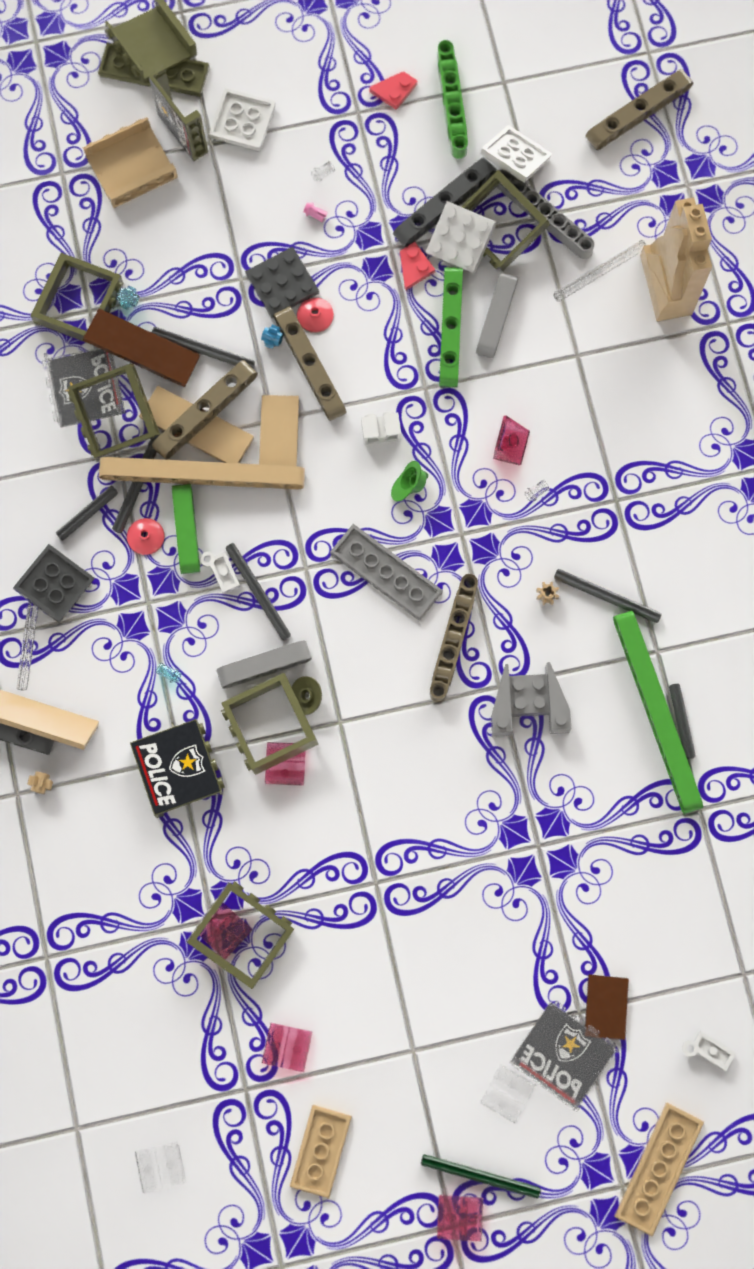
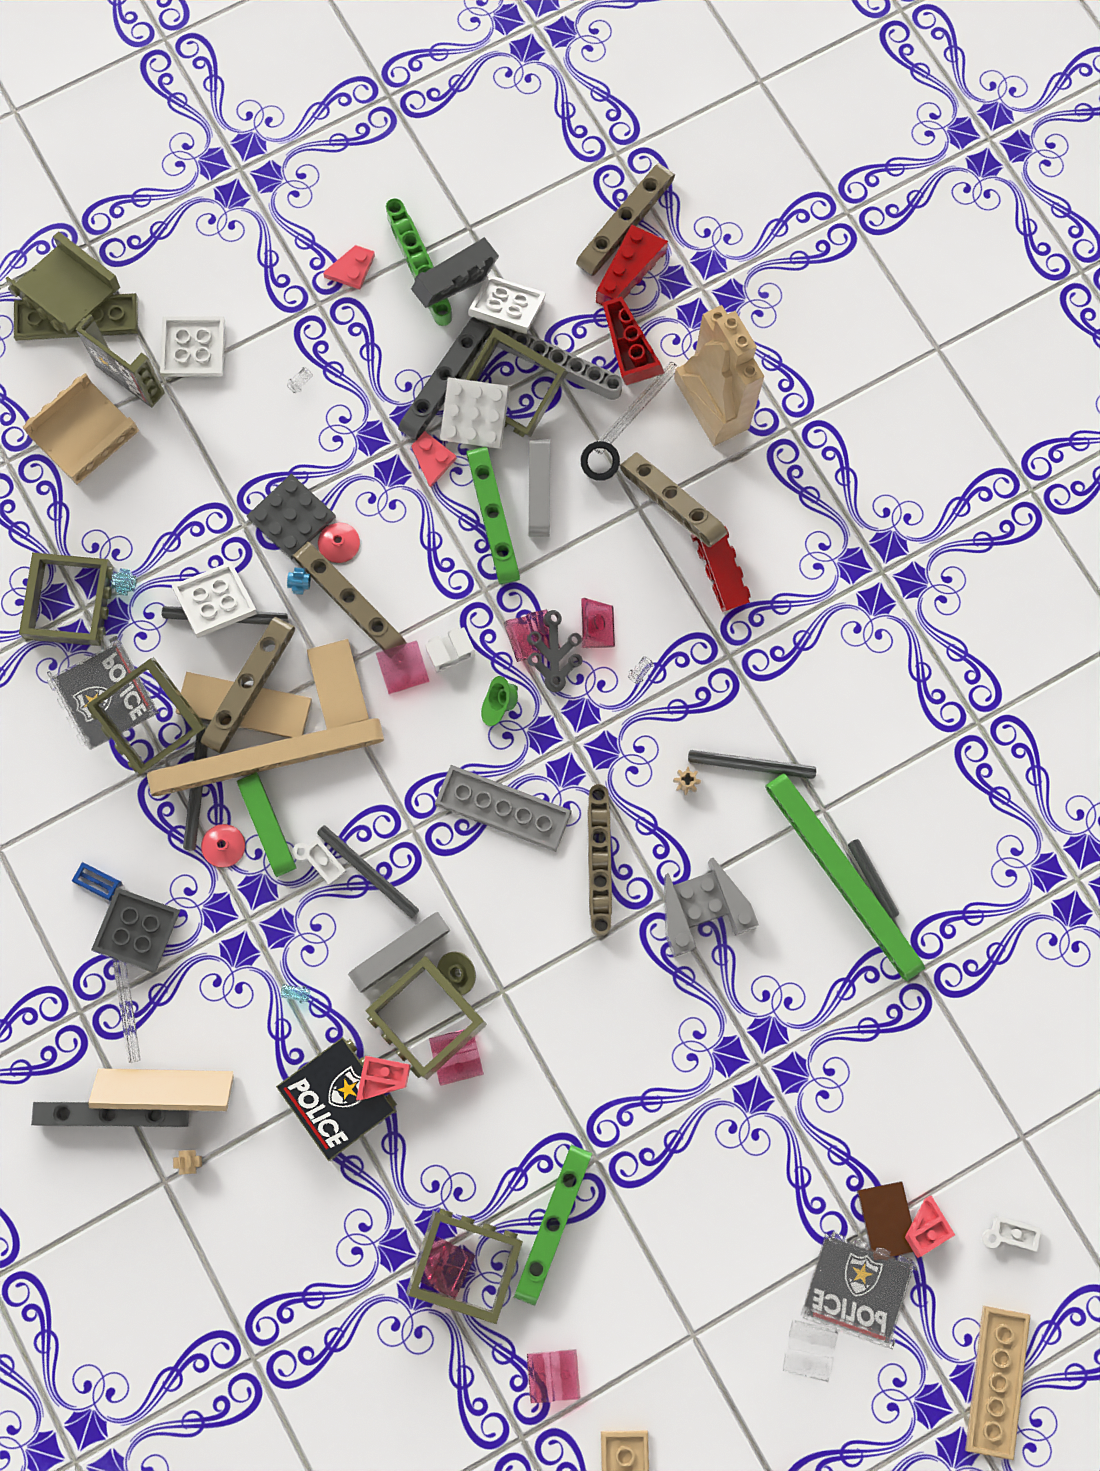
camera: 20 degrees left, 0 degrees up
(22, 525) = (117, 883): none -> blue tile
(86, 513) = (149, 838): dark grey axle -> none
(141, 347) = (152, 635): reddish brown tile -> none
(197, 332) = (214, 599): none -> white plate
(218, 760) = (382, 1077): none -> coral wing
(315, 212) = (304, 428): bright pink pin -> none
(315, 936) = (546, 1240): none -> bright green beam
(337, 431) = (402, 667): none -> clear pink slope
(453, 436) = (521, 627): none -> clear pink slope
(466, 456) = (554, 654): none -> dark grey plant
(479, 116) = (455, 273): none -> dark grey wedge
(480, 1176) = (803, 1453): dark green axle -> none
(569, 306) = (615, 460): none -> black tyre
(607, 354) = (673, 499): none -> dark tan beam
(610, 217) = (631, 347): none -> red wedge
(631, 422) = (724, 572): none -> red wedge
(635, 145) = (632, 261): none -> red wedge
(638, 1023) = (928, 1228): none -> coral wing

